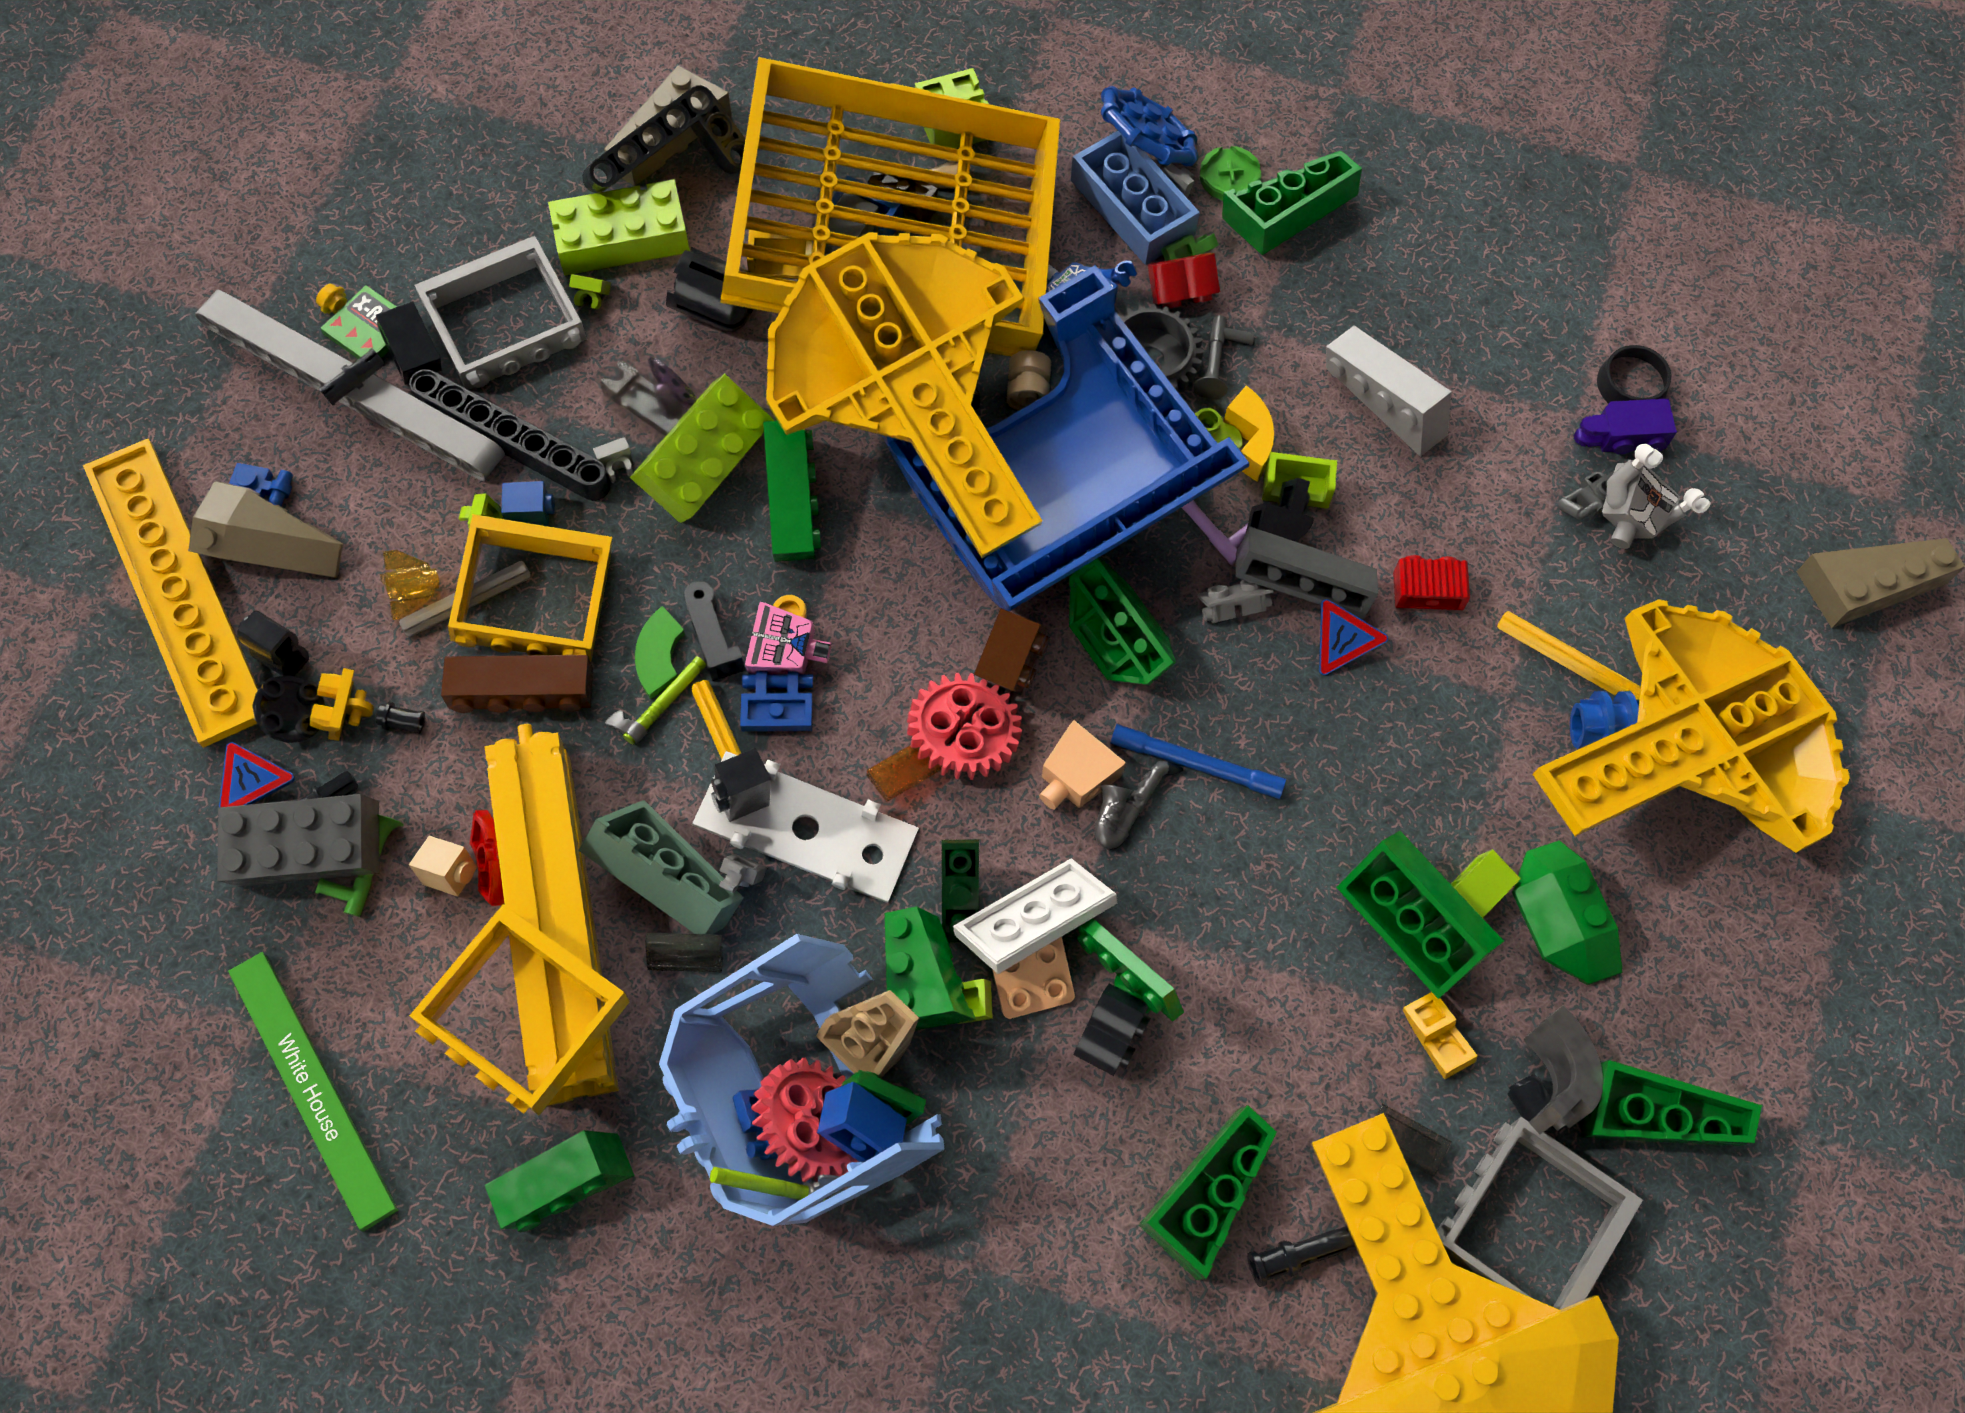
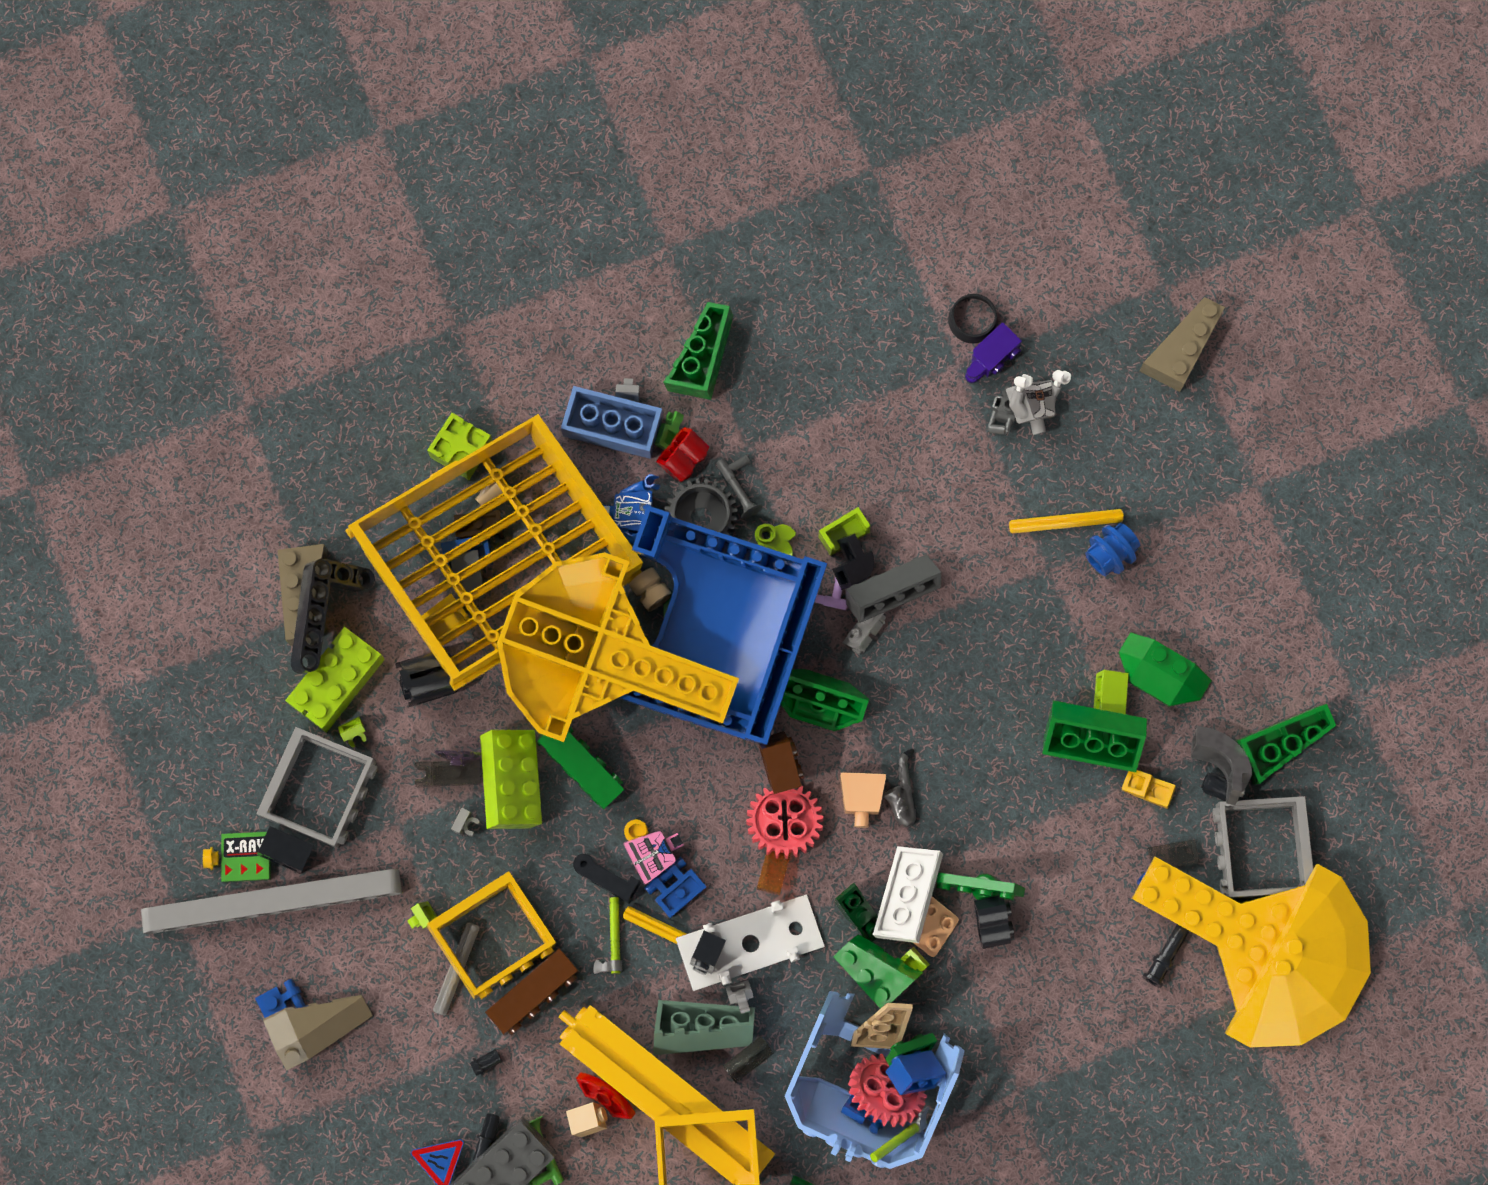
camera: 35 degrees left, 10 degrees up
(175, 592) = (294, 1095): yellow plate -> none
(272, 644) = (384, 1082): black brick -> none
(284, 708) = (423, 1107): black dish -> none
(332, 718) = (441, 1074): yellow hips -> none
(352, 376) = (279, 898): black pin -> none
(409, 582) = (419, 987): clear yellow brick -> none
(525, 436) = (380, 854): black beam -> none
(527, 502) = (441, 889): blue brick -> none
(655, 652) = (585, 913): bright green tile -> none
(1149, 126) = (596, 370): blue plate -> none
(1209, 1193) = (1102, 962): green wedge -> none
(1228, 170) = (649, 358): bright green tile -> none
(1253, 779) = (882, 752): blue piece -> none
(1255, 424) = (790, 513): yellow brick -> none
(1344, 637) = (939, 607): piece -> none
(1391, 388) = (848, 434): light grey wedge -> none
(1431, 583) = (959, 537): red brick -> none
(1717, 720) = (1169, 505): yellow plate -> none

